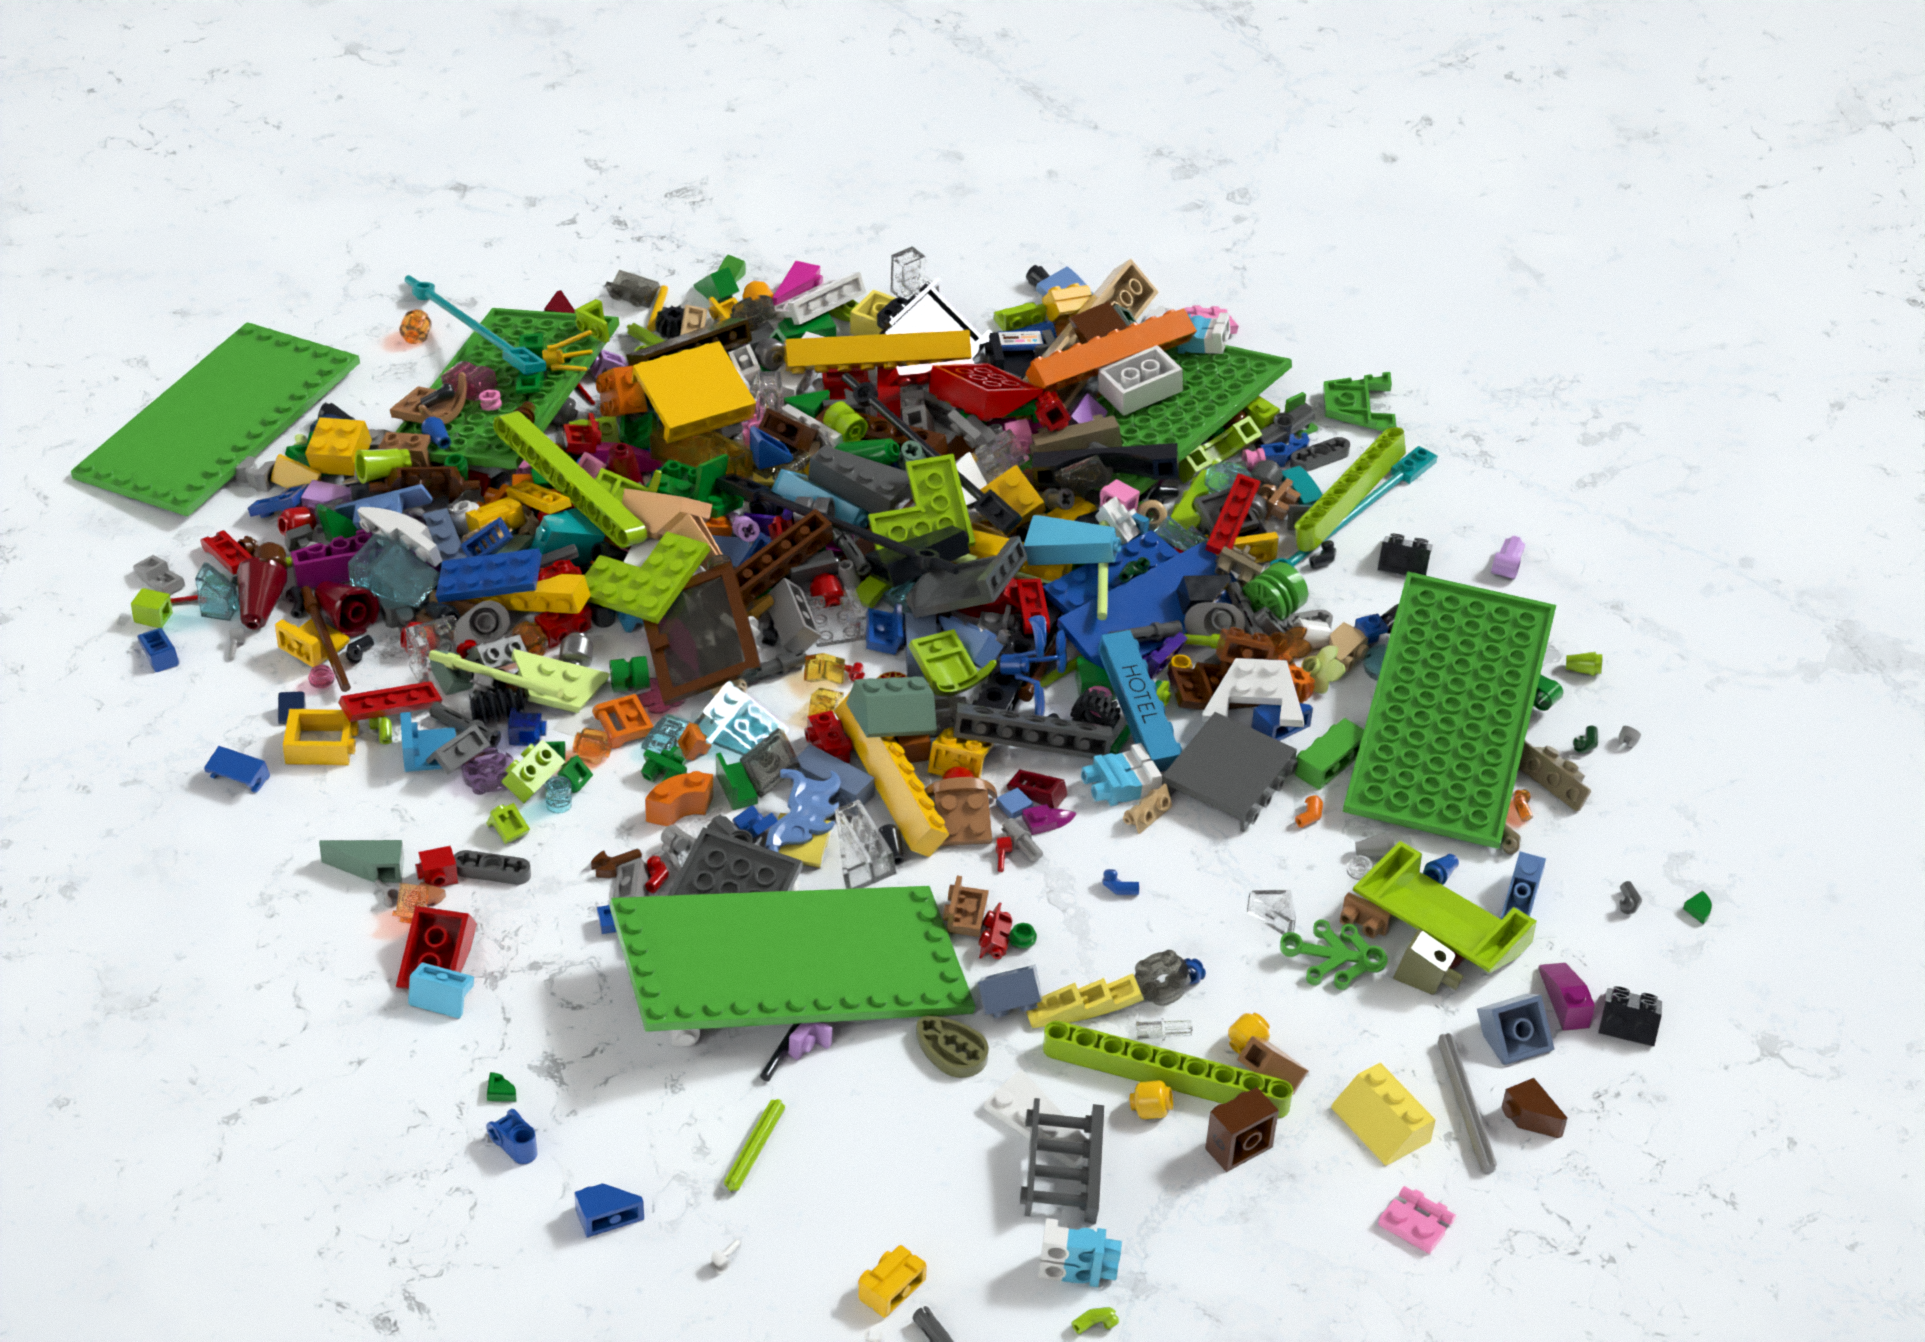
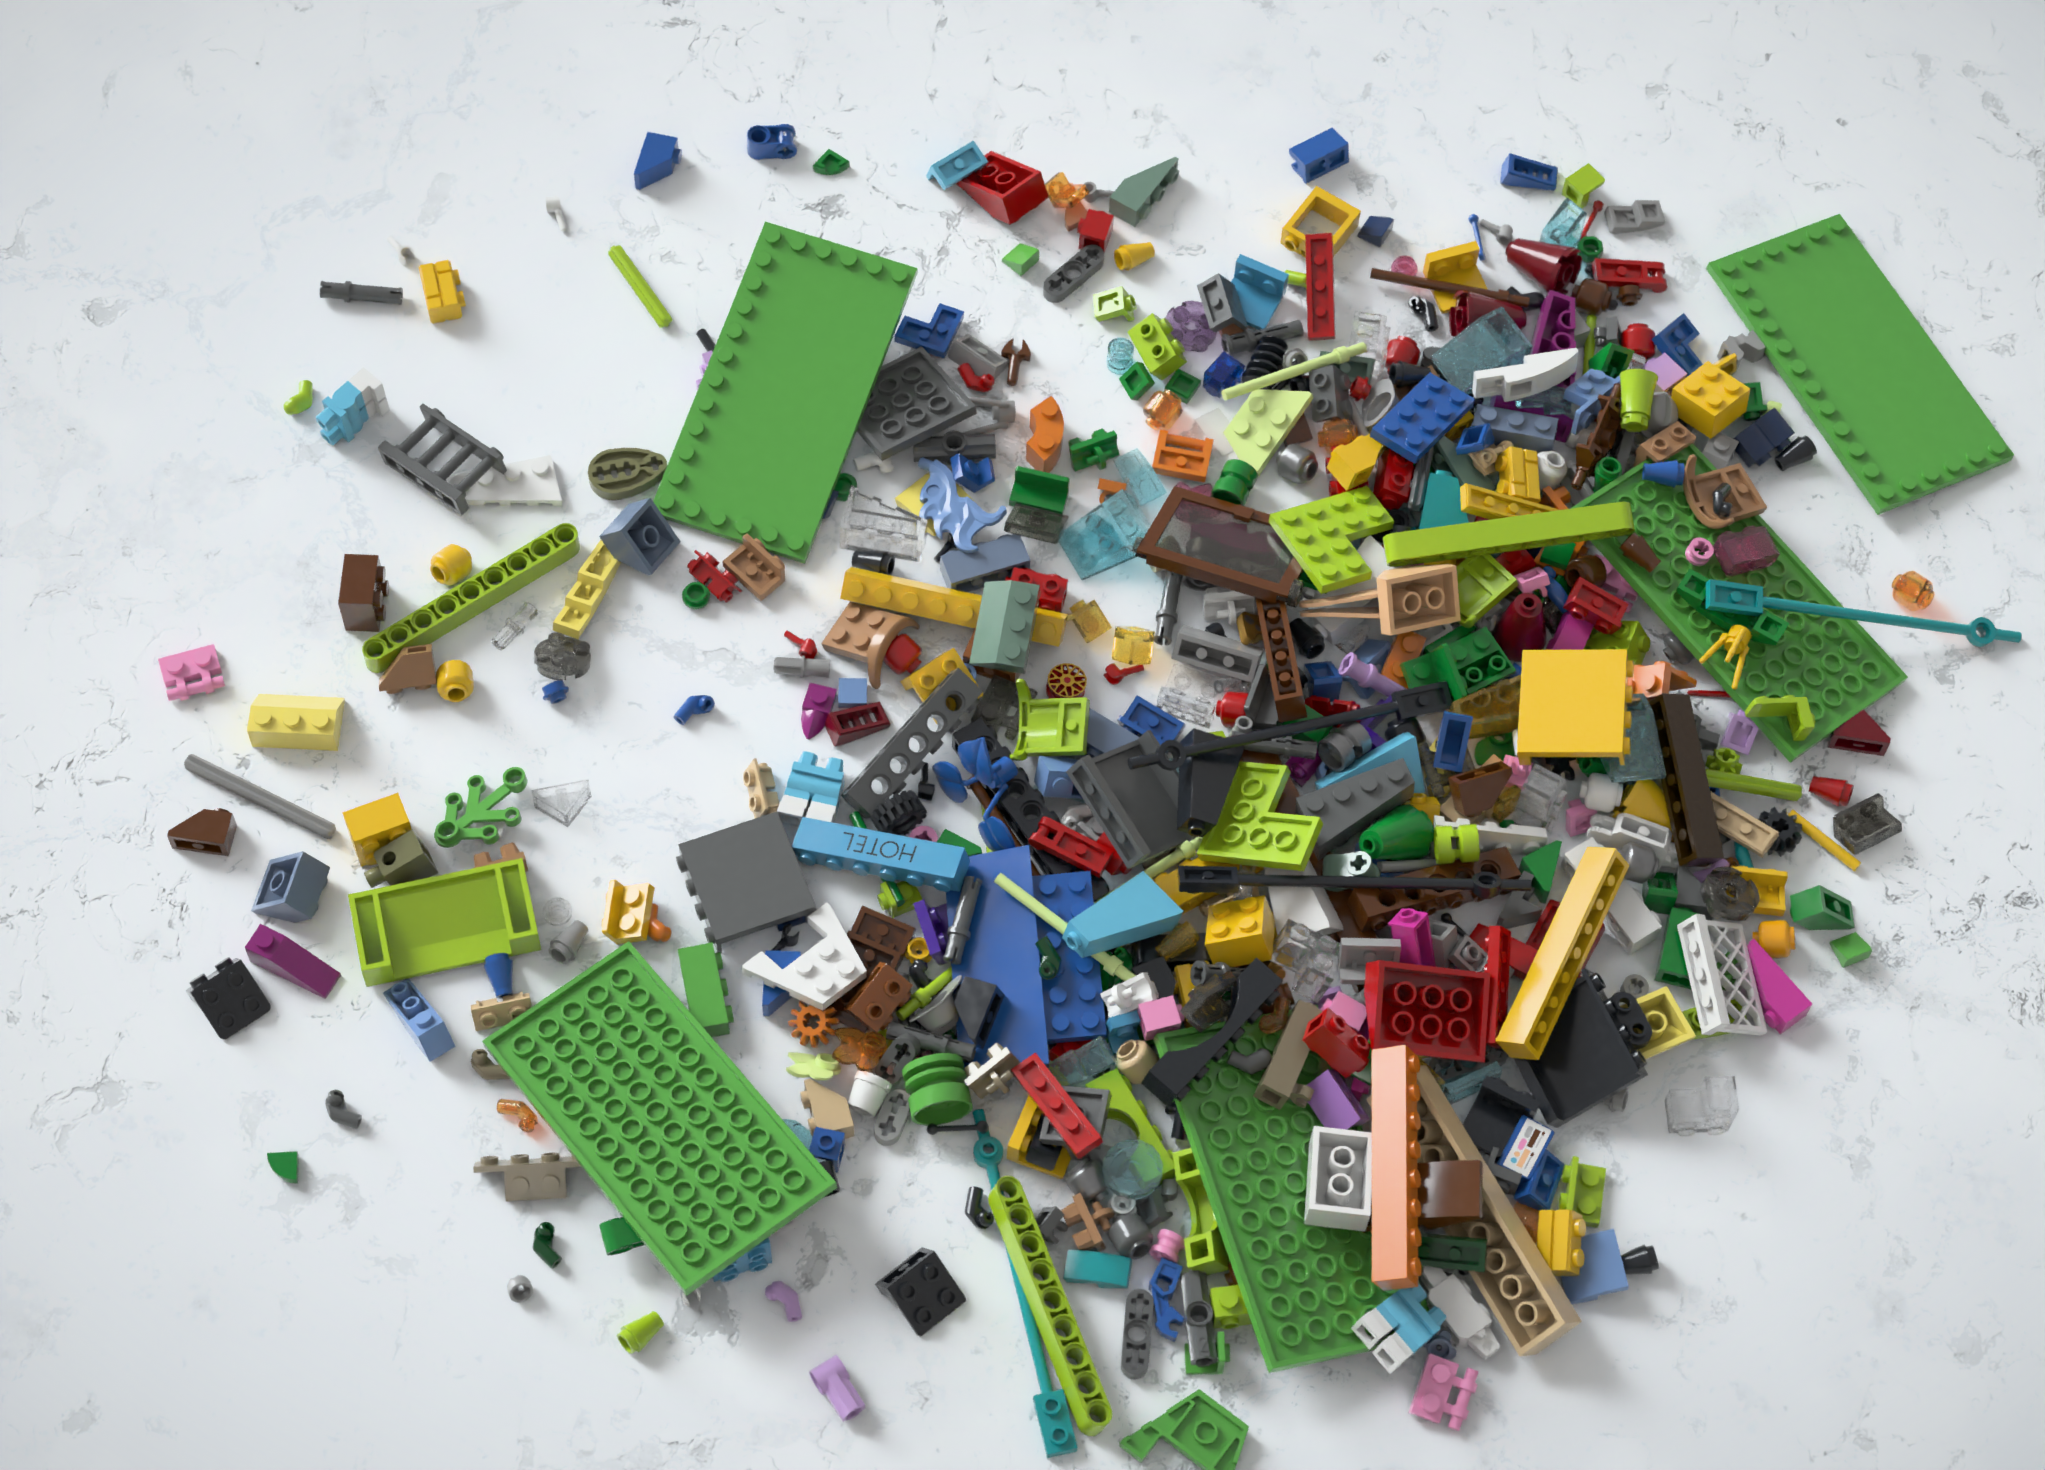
camera: 125 degrees right, 20 degrees up
(232, 662) = (1473, 219): none -> hinge
(442, 835) = (1132, 255): none -> yellow cone
(503, 905) = (1021, 258): none -> bright green slope
(617, 307) = (1832, 790): none -> red cone
(935, 414) = (1415, 937): none -> dark pink window
(1197, 653) = (918, 974): none -> black arm
(1319, 823) = (627, 912): none -> yellow bracket
(1419, 989) = (376, 826): none -> yellow brick
(1473, 857) = (493, 1014): none -> tan hinge

